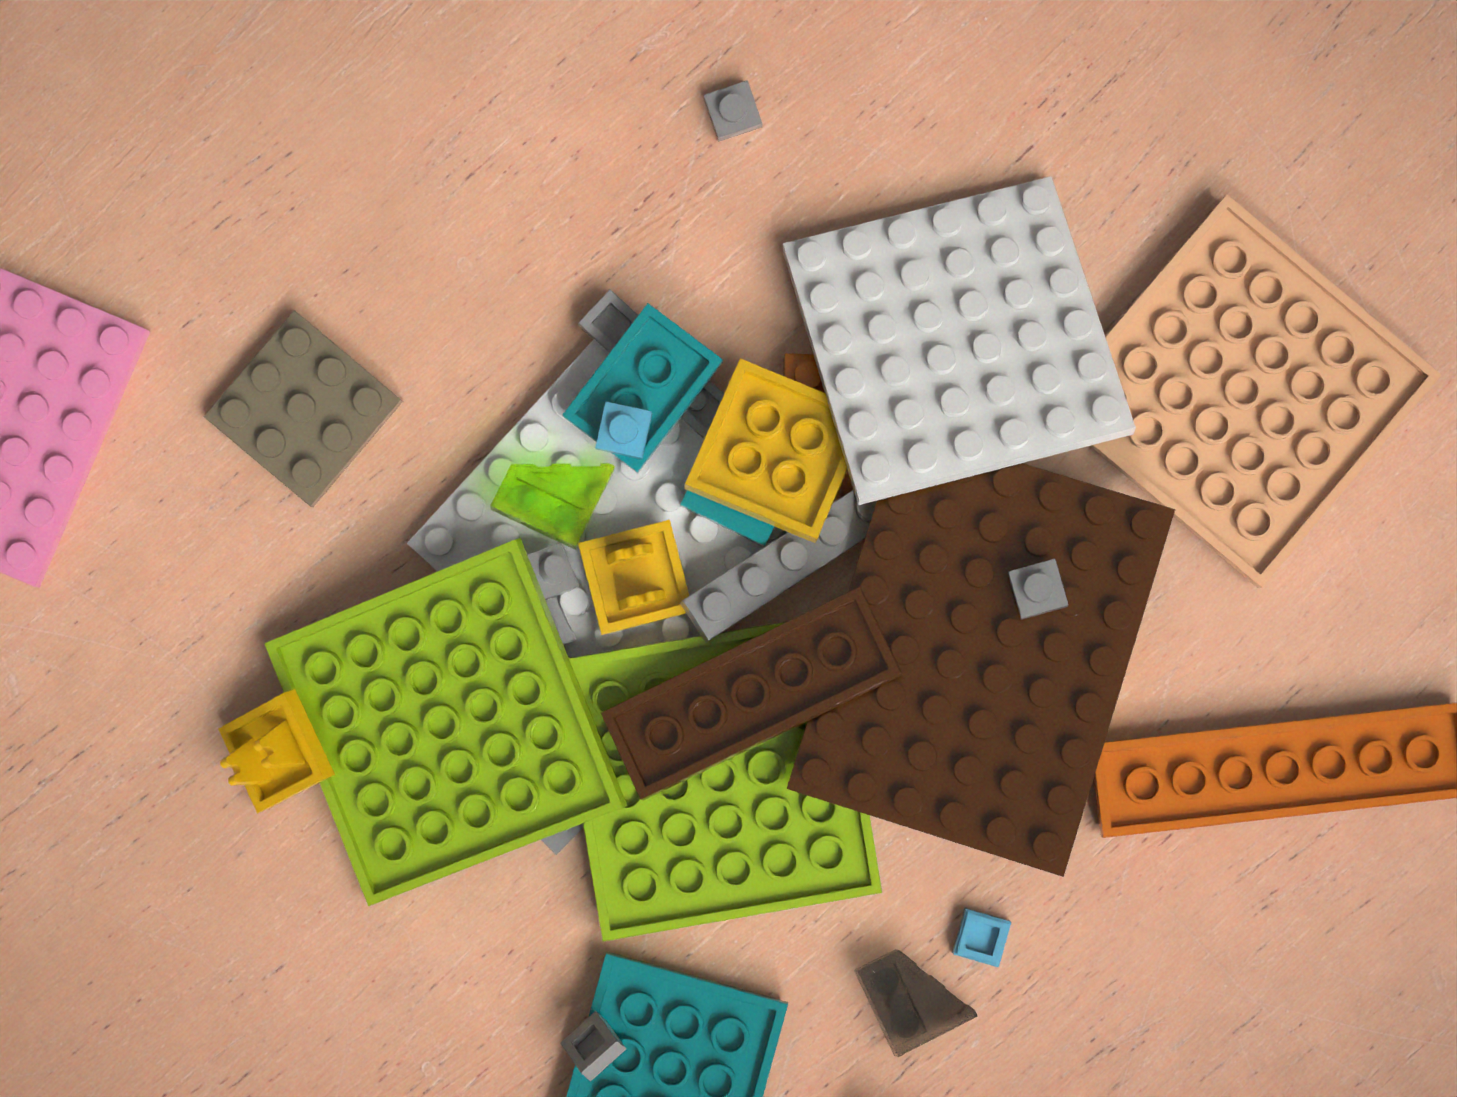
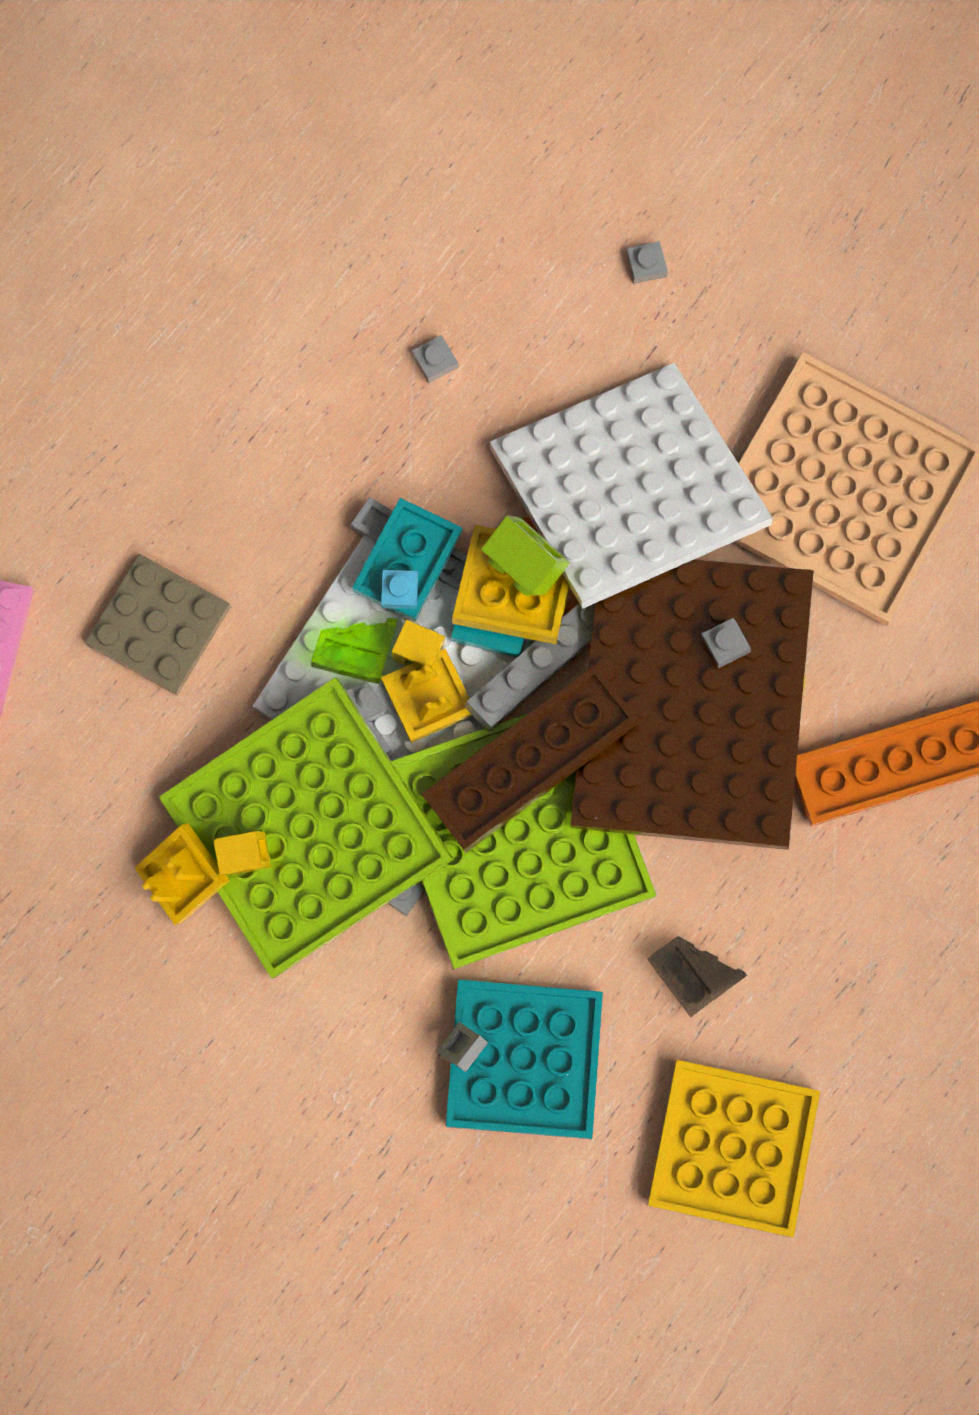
camera: 10 degrees left, 10 degrees down
(356, 746) = (242, 853): none -> yellow panel
(634, 510) = (417, 645): none -> yellow panel
(795, 422) = (524, 556): none -> lime brick
(981, 937) = (737, 917): medium azure tile -> none
(1043, 26) = (646, 262): none -> light grey plate

